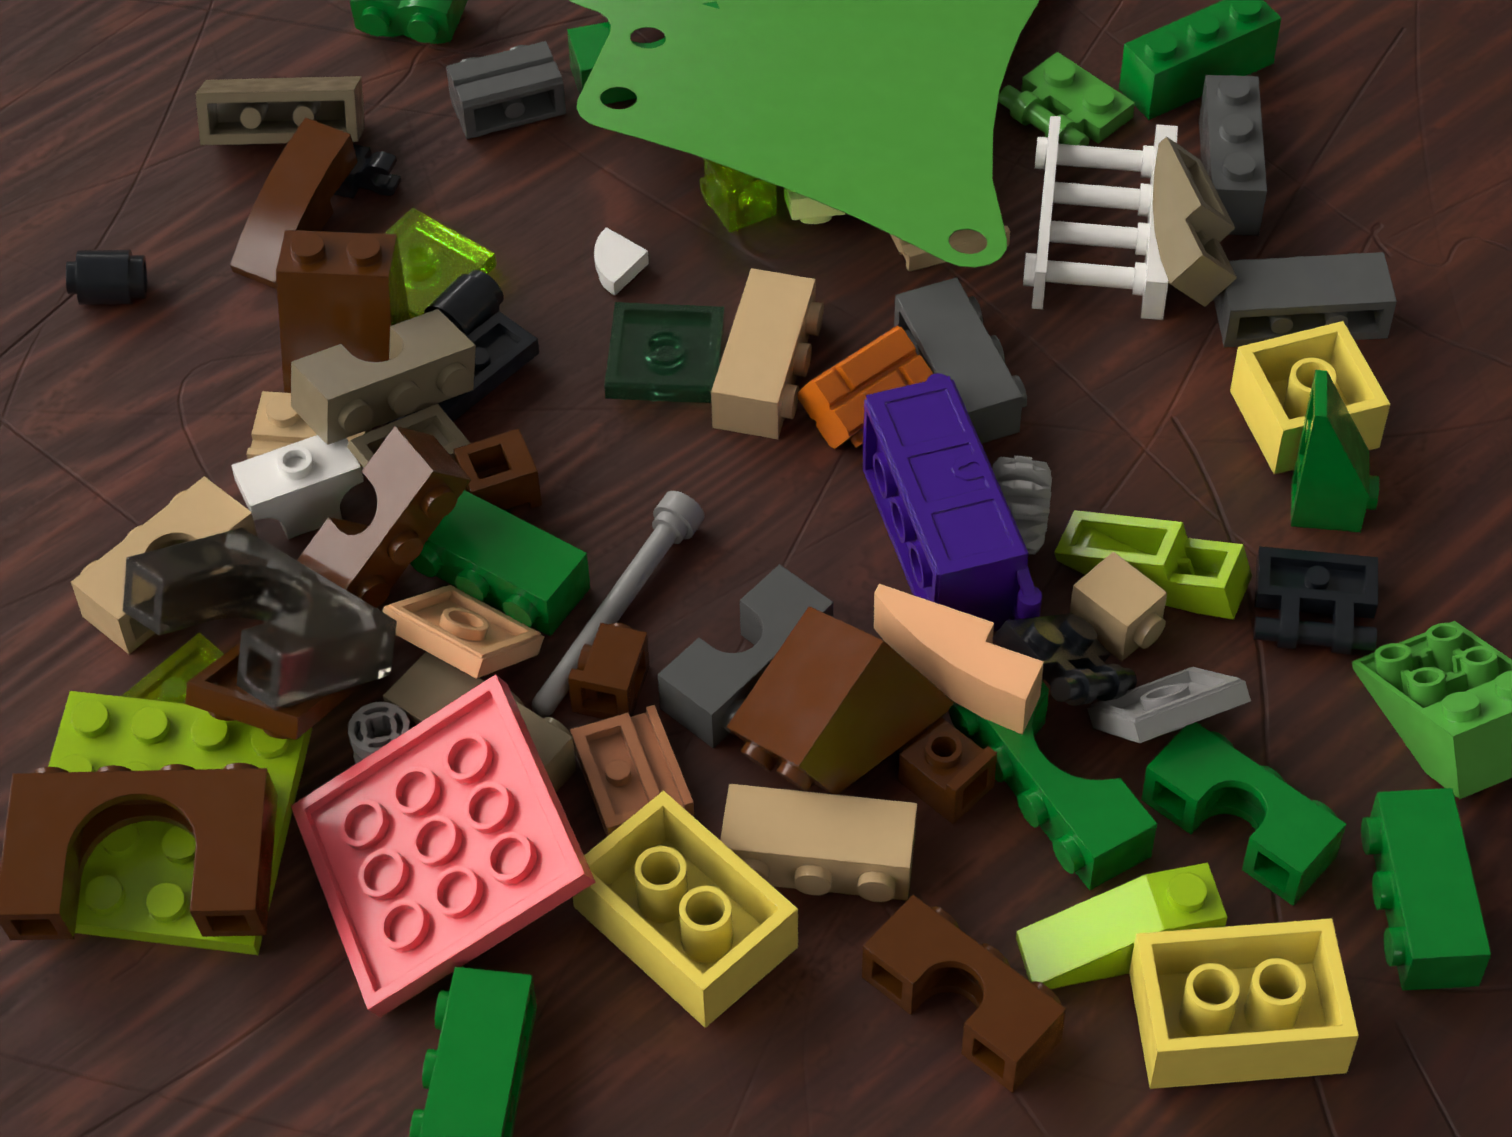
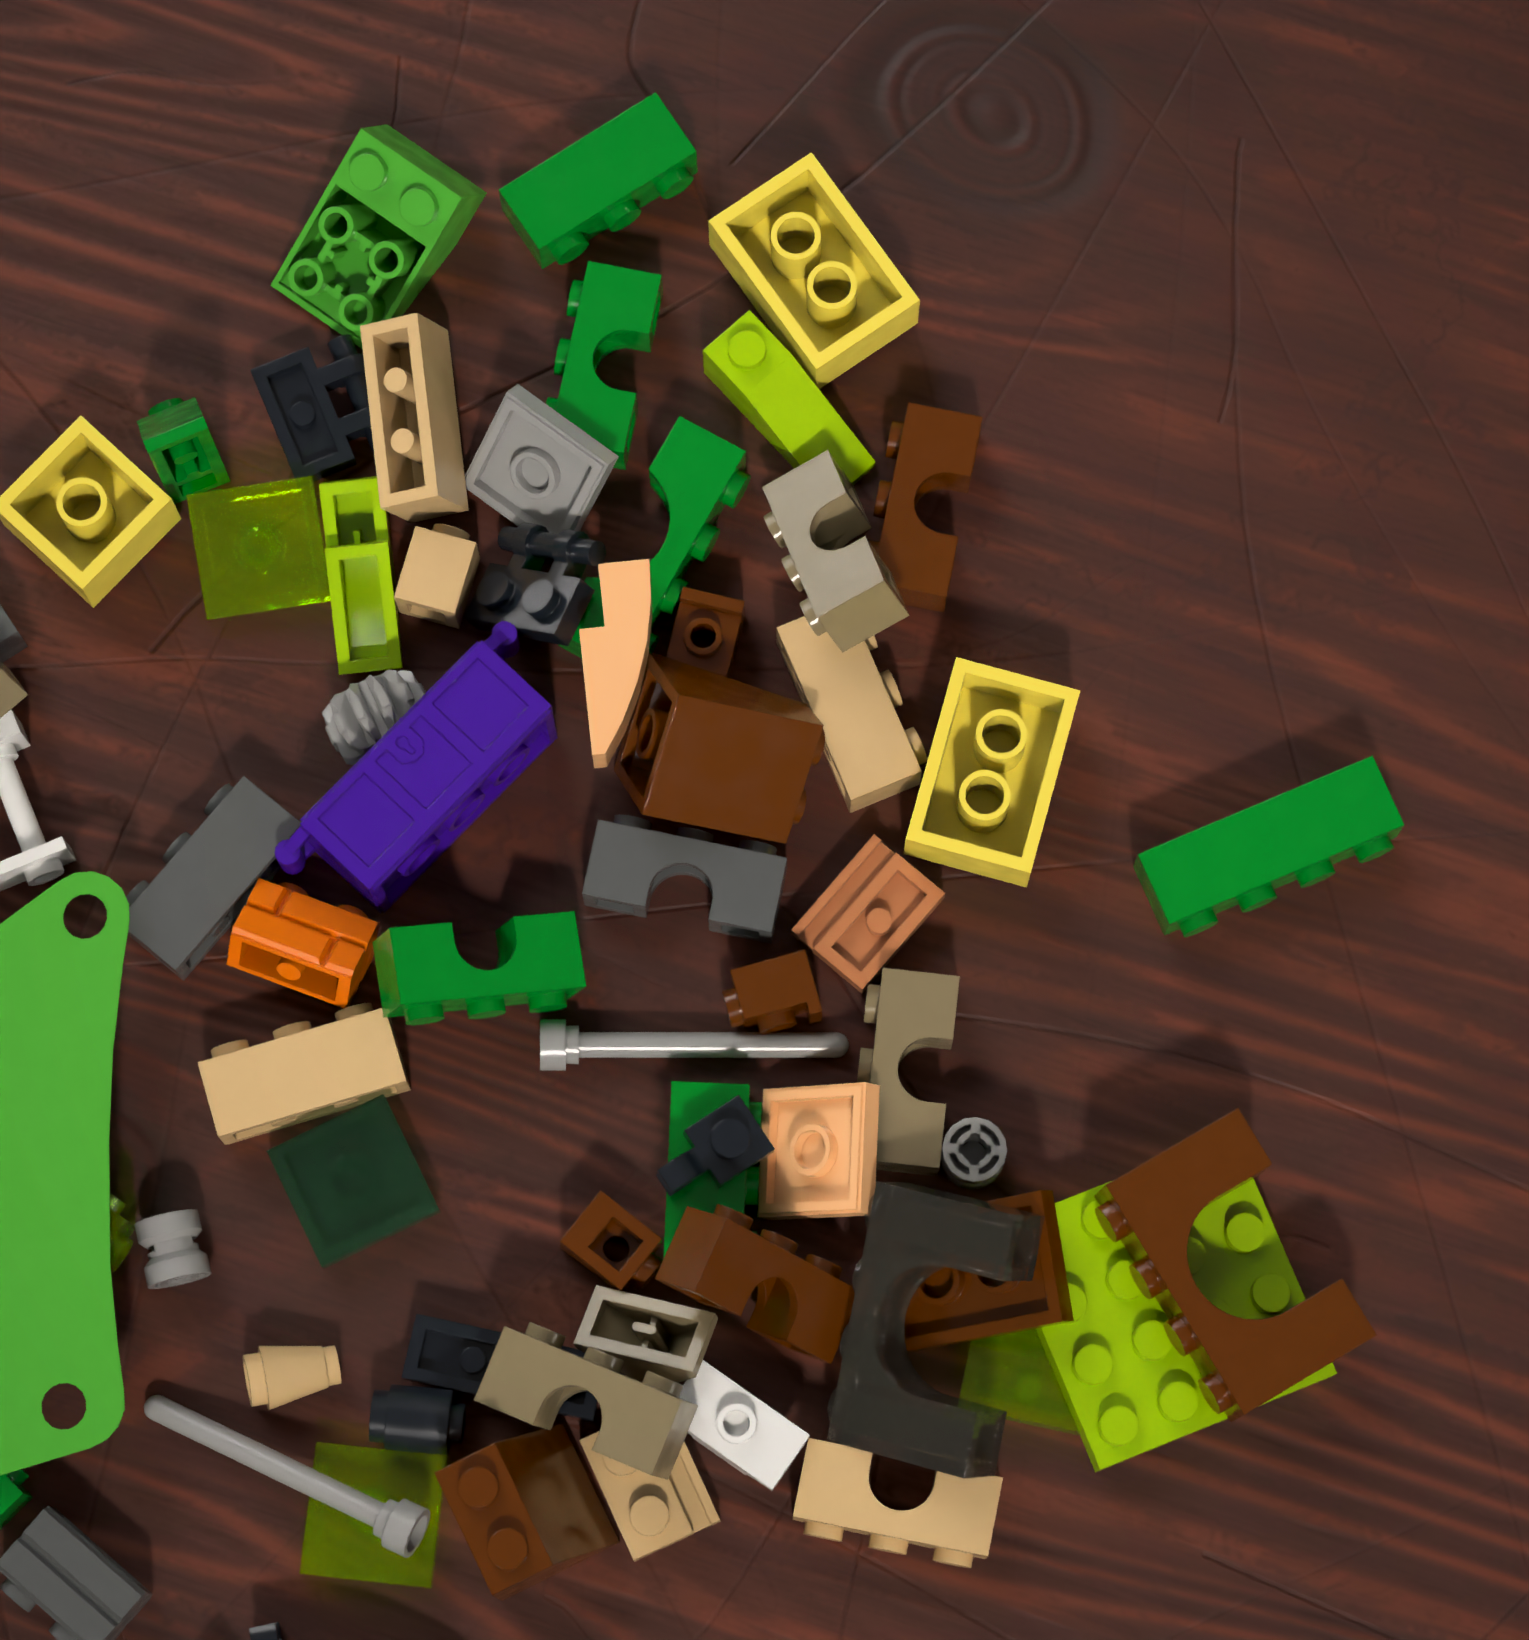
camera: 120 degrees left, 25 degrees up
(440, 845) = (1061, 1011): coral plate -> none
(495, 219) = (397, 1523): none -> light grey piece
(509, 551) = (721, 1144): none -> black plate
(555, 256) = (289, 1373): none -> tan cone
(617, 260) = (249, 1313): white tile -> none
(692, 229) = (174, 1254): none -> light grey wheel
(778, 428) = (426, 976): none -> green arch
(999, 879) = (846, 587): none -> arch
(1221, 495) = (259, 547): none -> clear neon green plate
(1267, 640) = (414, 418): none -> tan brick

